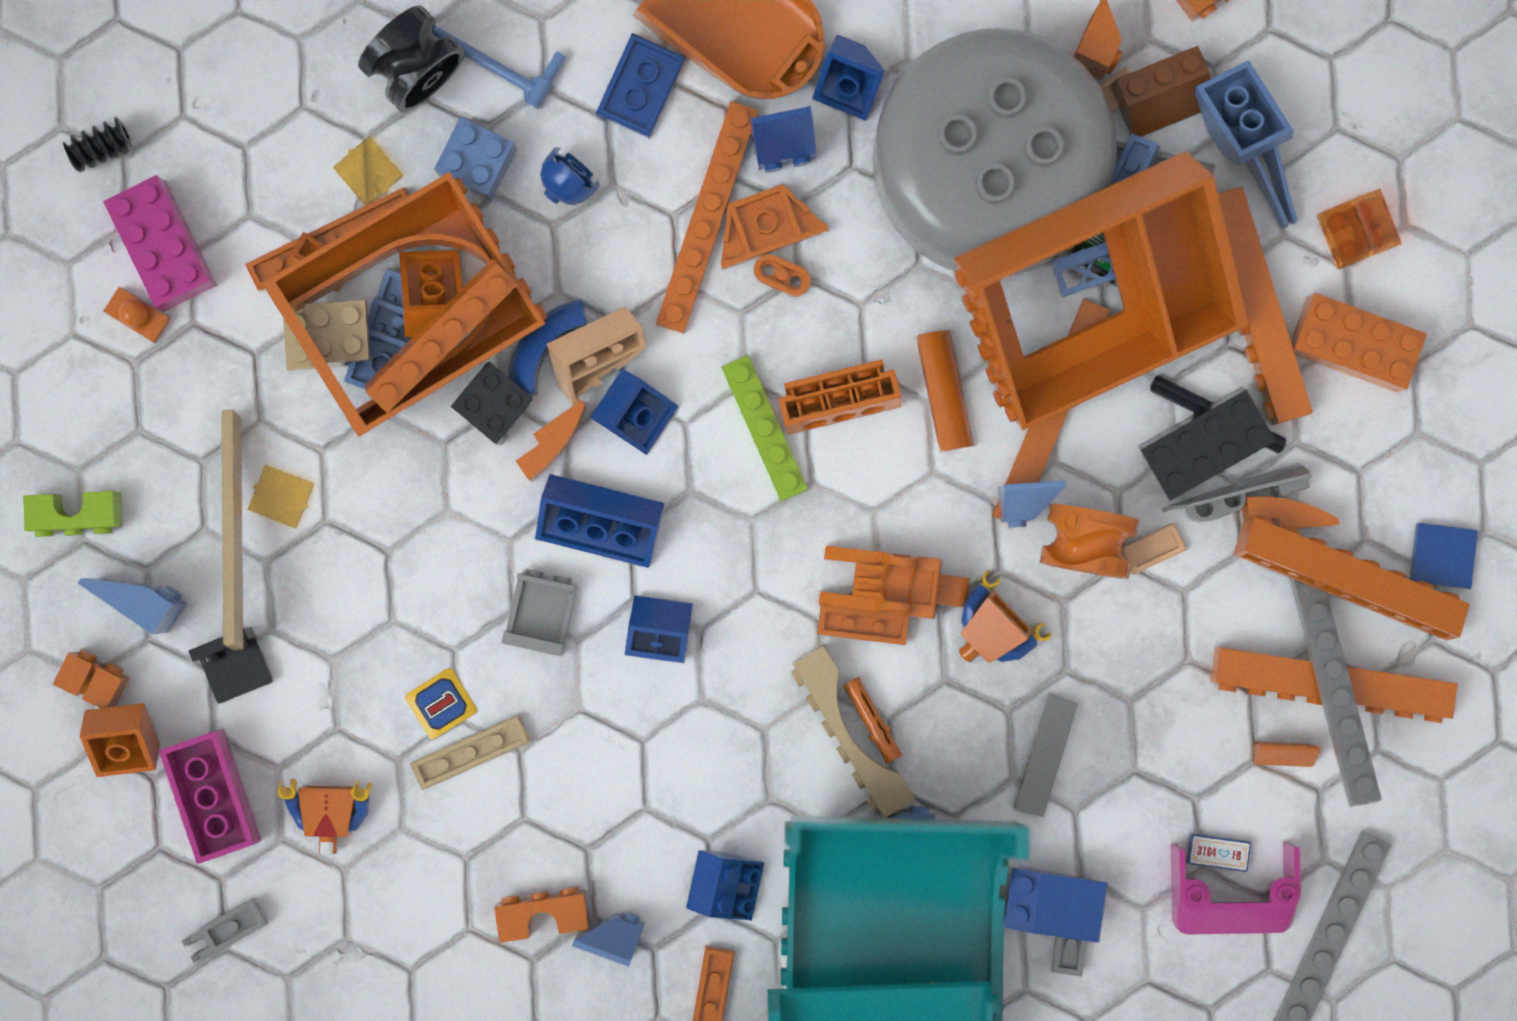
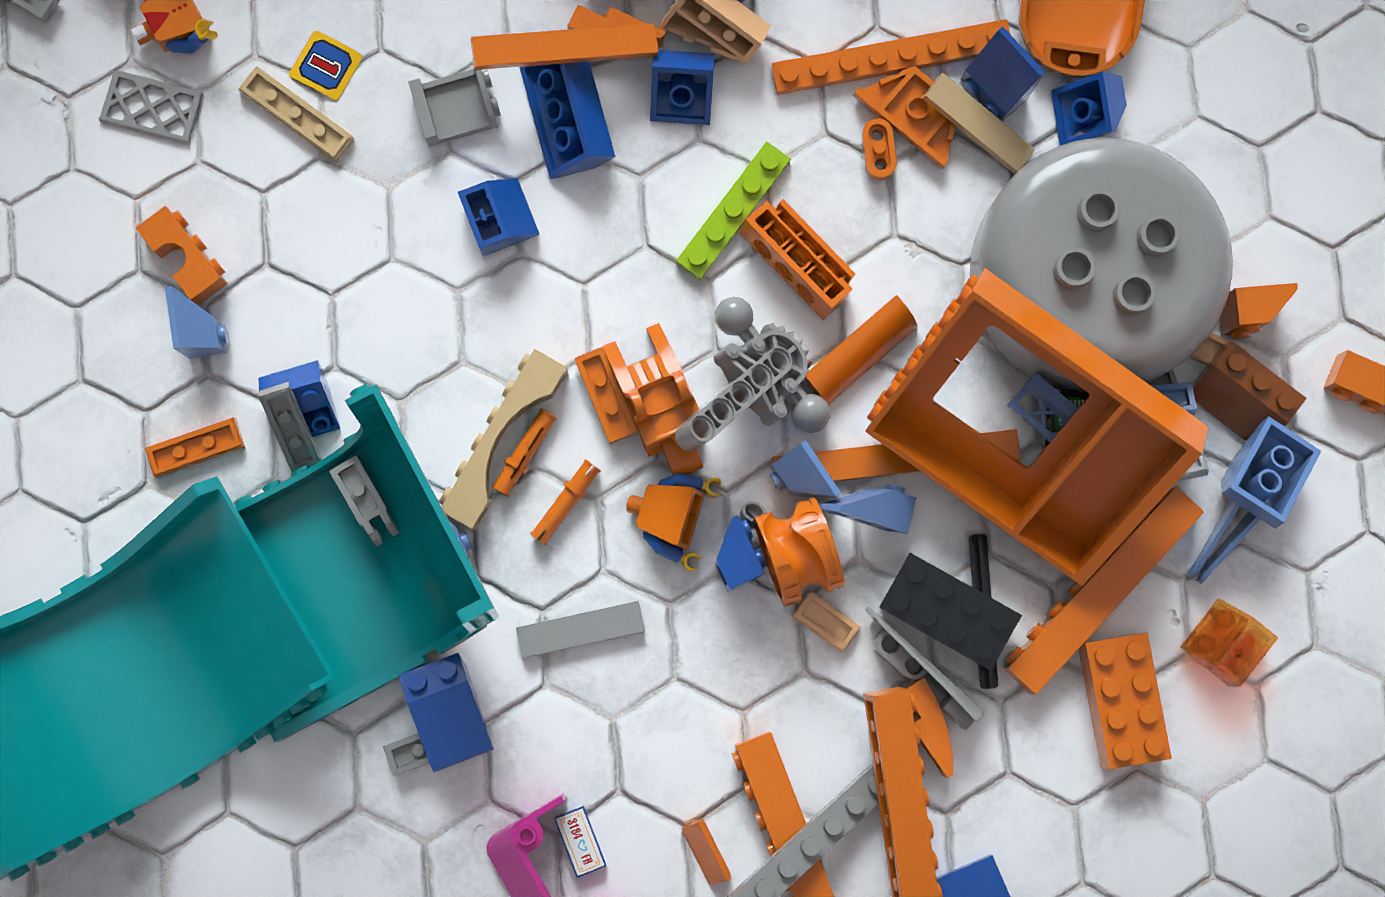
camera: 50 degrees right, 5 degrees down
(369, 869) = (143, 83): none -> light grey window
(551, 495) = (564, 46): none -> orange tile
(744, 904) = (289, 426): none -> light grey tile
(809, 179) = (978, 123): none -> tan tile
(841, 875) = (363, 497): none -> light grey hinge
(929, 699) = (565, 502): none -> orange pin
(936, 482) = (757, 377): none -> light grey piece
(1030, 560) = (751, 510): none -> light grey hinge
(1063, 595) = (737, 559): none -> blue slope
(1086, 455) = (880, 508): none -> medium blue slope

